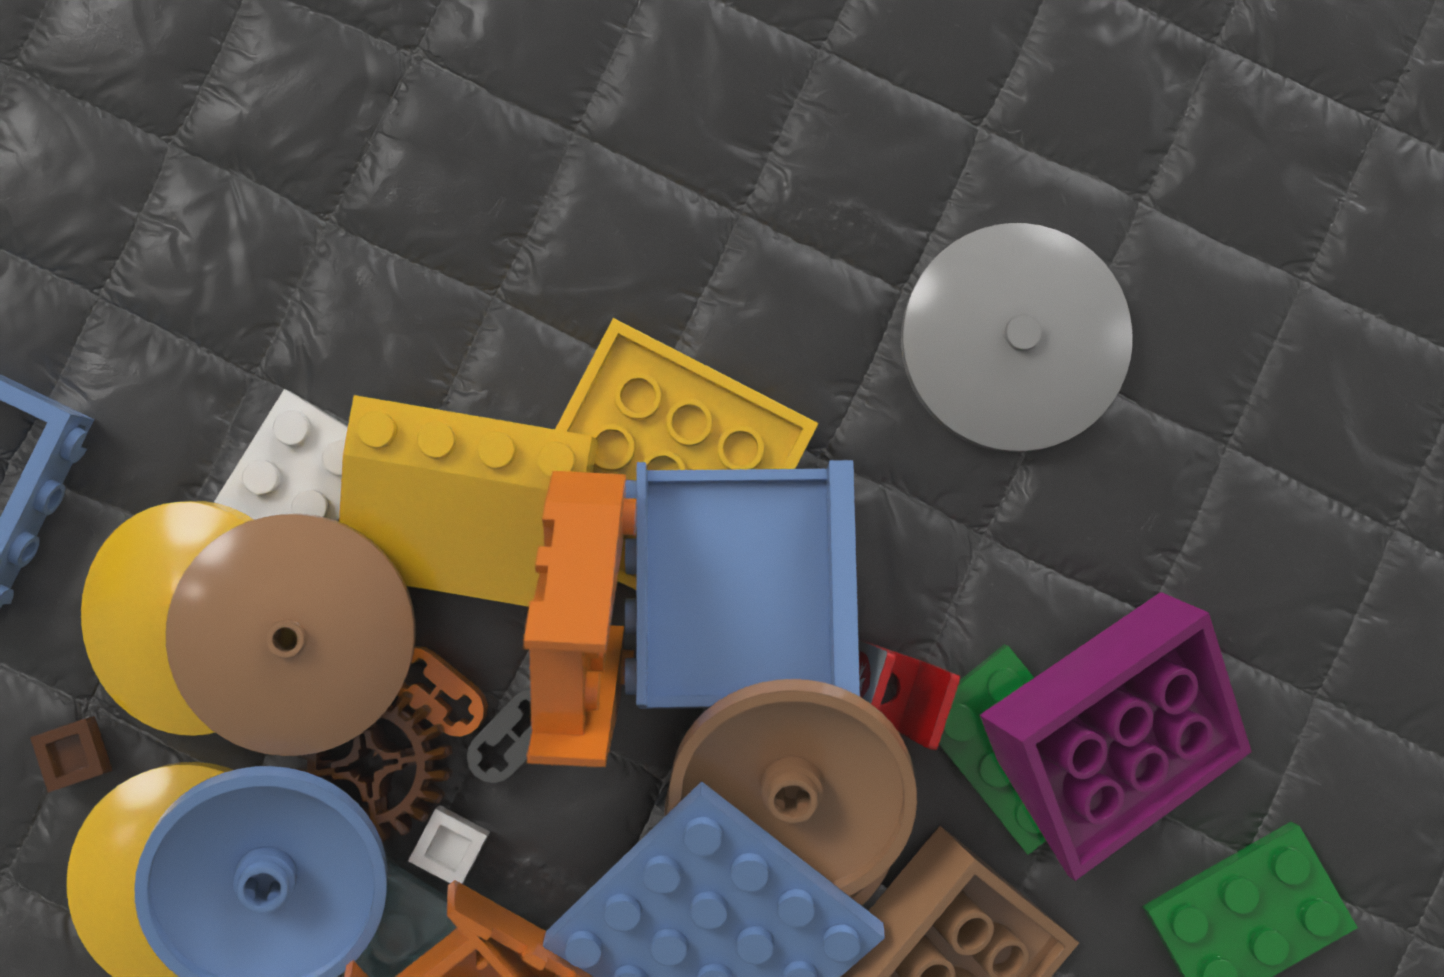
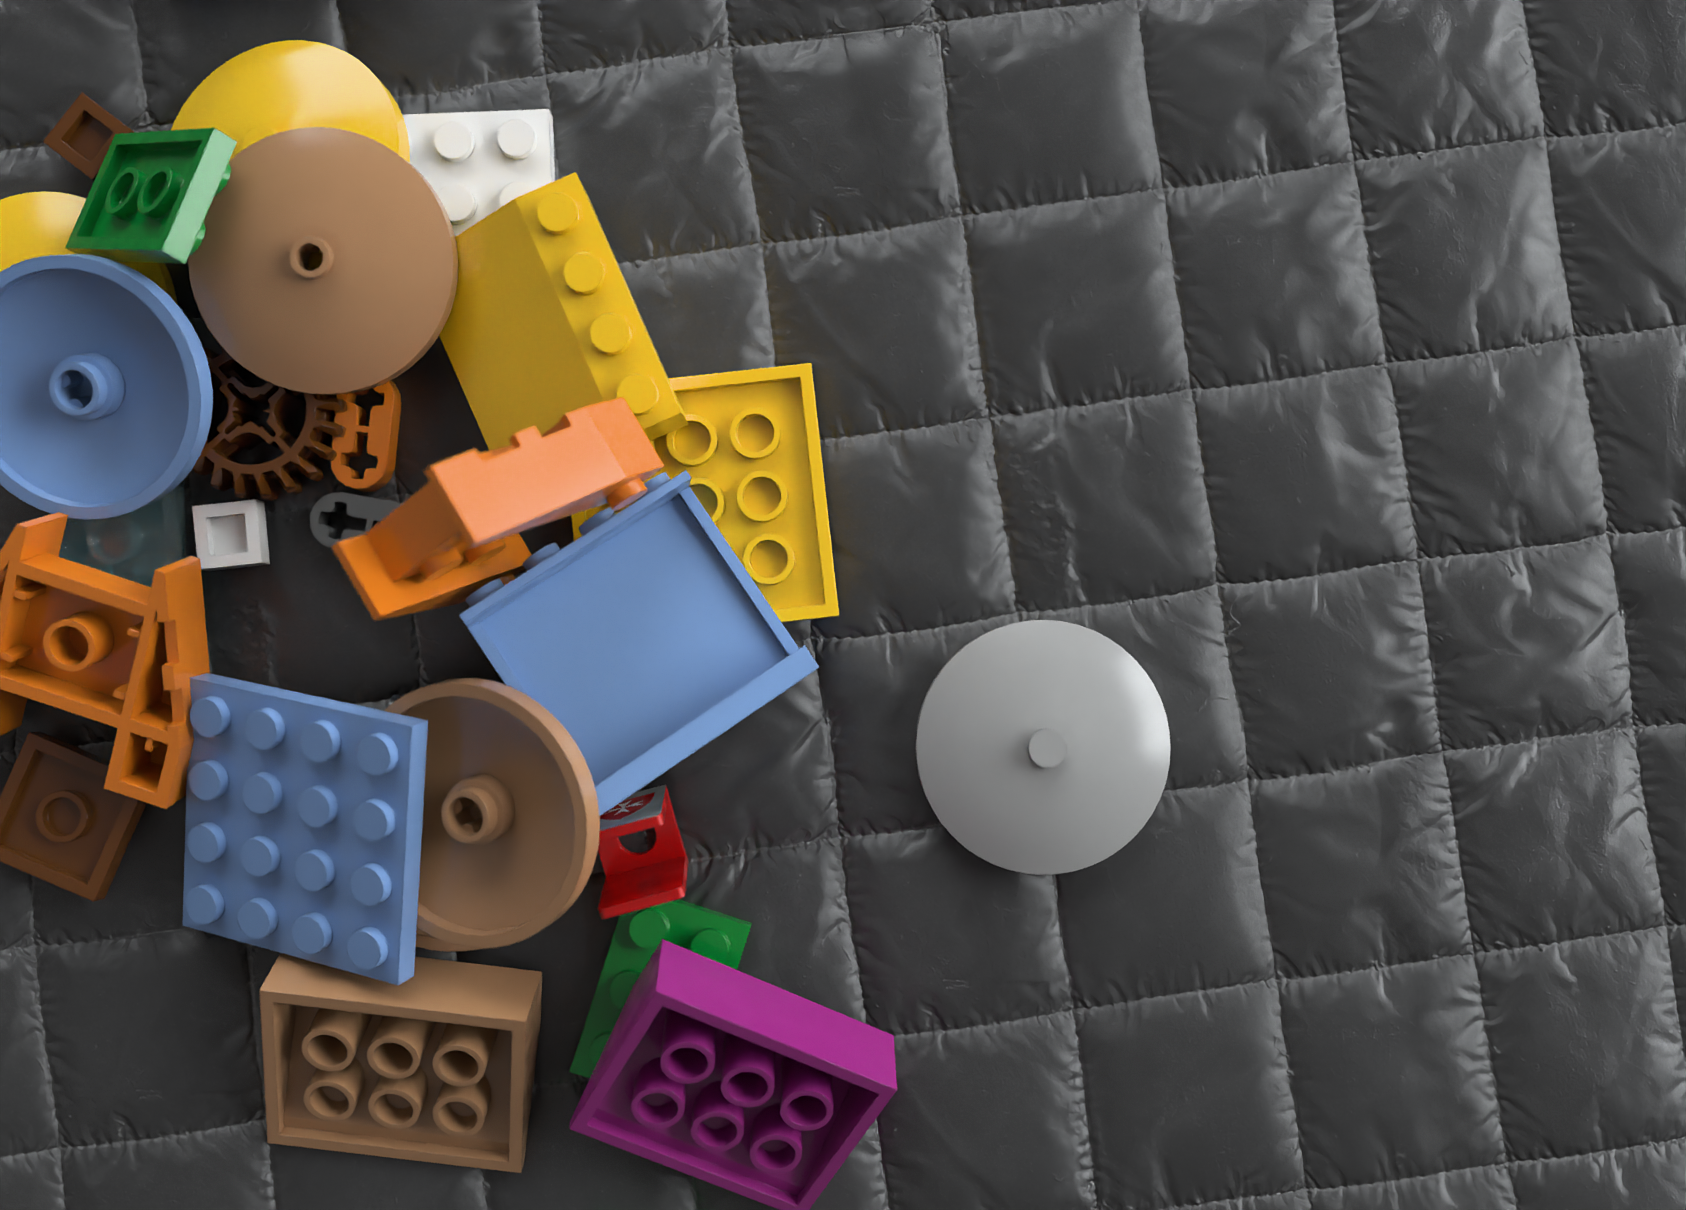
camera: 50 degrees right, 0 degrees up
(153, 731) = (153, 195): none -> green plate

